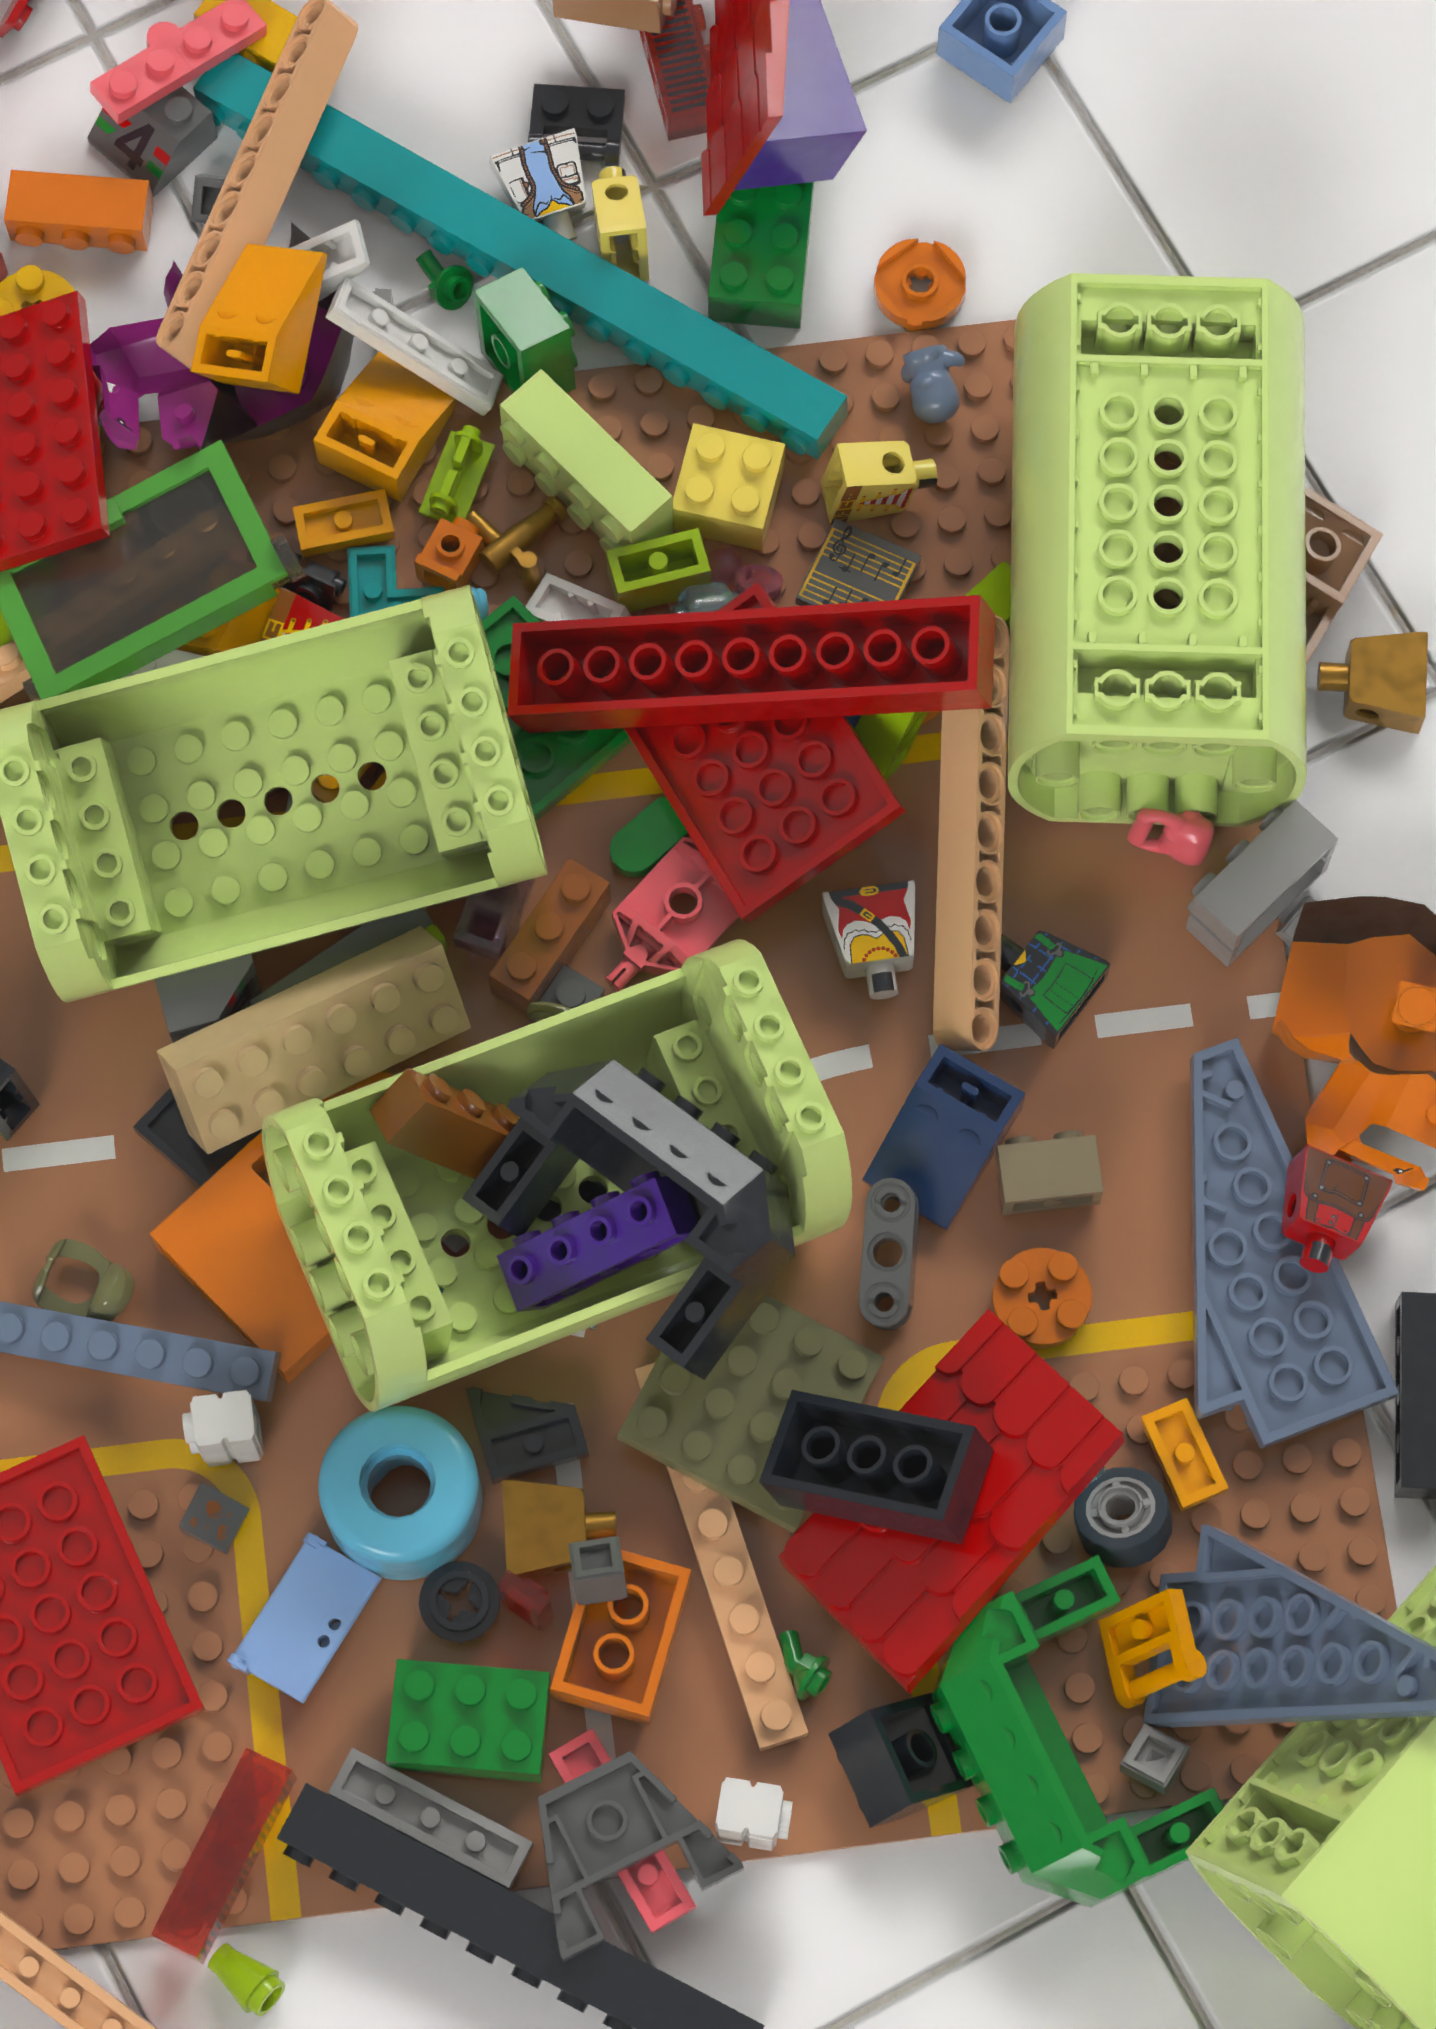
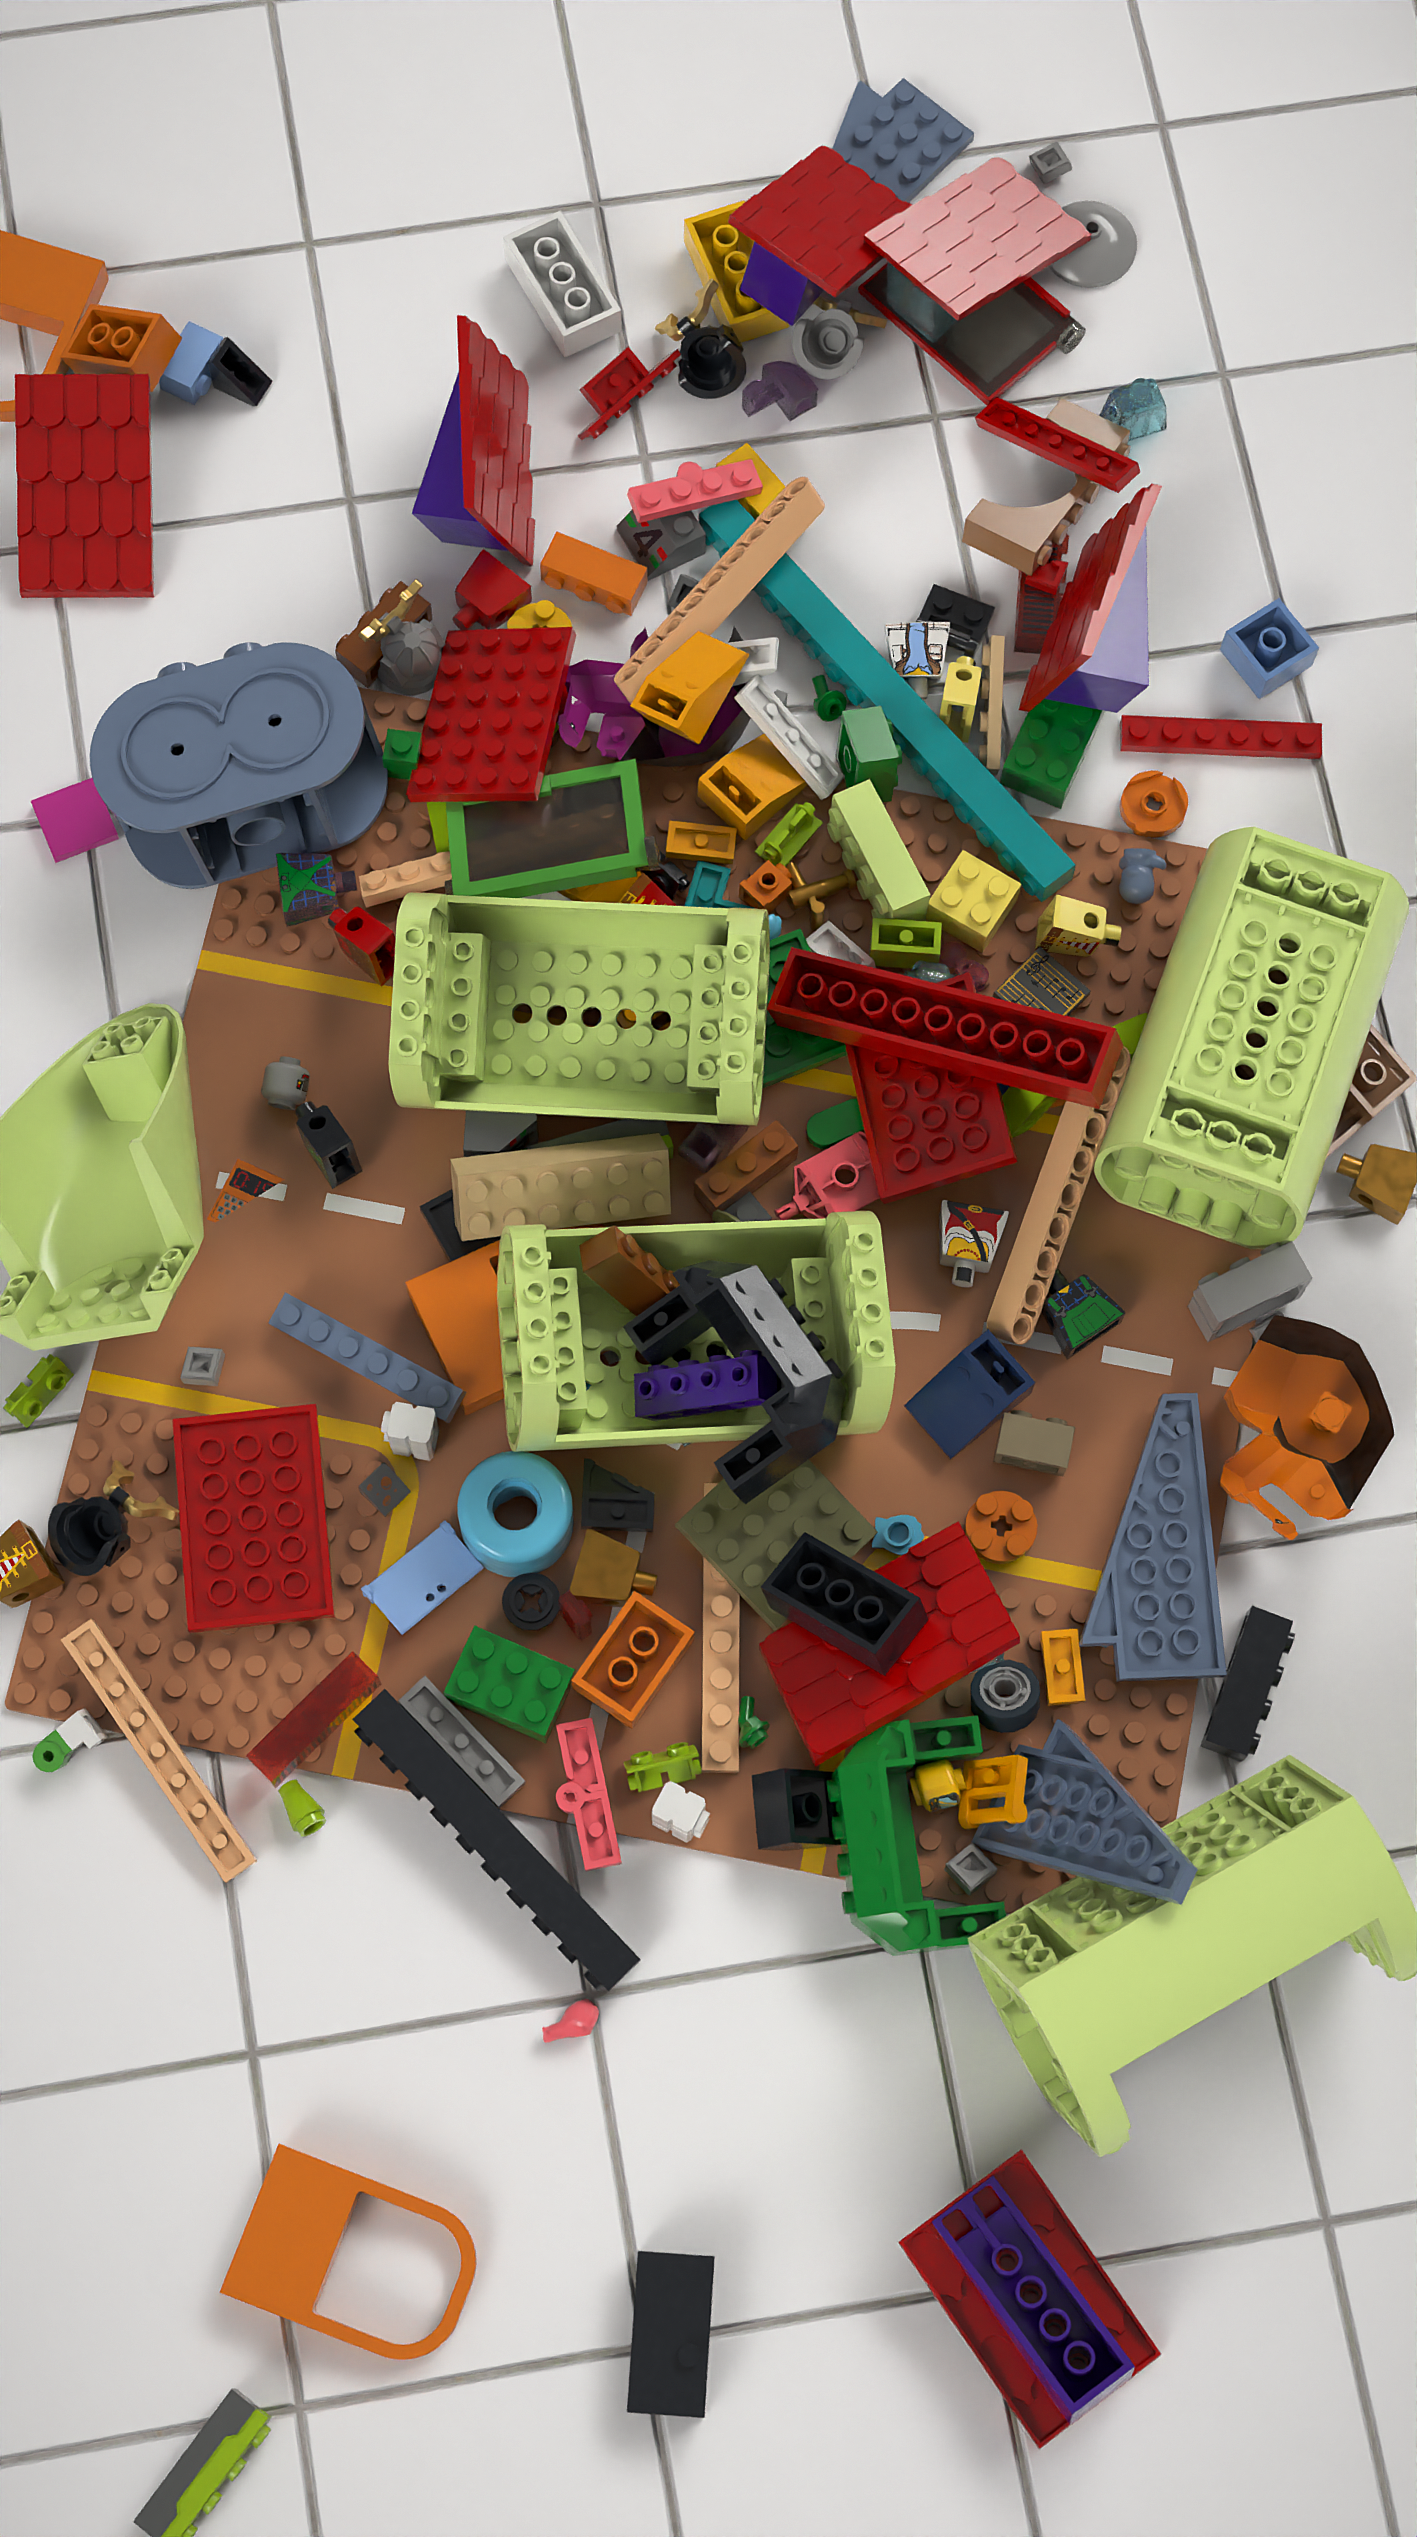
camera: 15 degrees right, 0 degrees up
(113, 1289) = (366, 1315): olive piece -> none
(598, 1570) = (630, 1611): dark grey slope -> none
(608, 1825) = (581, 1786): dark grey wing -> none
(661, 205) = (992, 693): none -> tan wing
(683, 28) = (1048, 576): none -> red tile
(721, 1748) = (649, 1766): none -> lime hinge
(885, 1227) = (904, 1442): dark grey piece -> none
(911, 1351) = (897, 1533): none -> medium azure animal
(977, 168) = (1220, 737): none -> red plate
(1075, 1664) = (937, 1785): none -> yellow head
(1184, 837) = (1206, 1243): coral piece -> none
(1329, 1206) = (1221, 1529): torso -> none

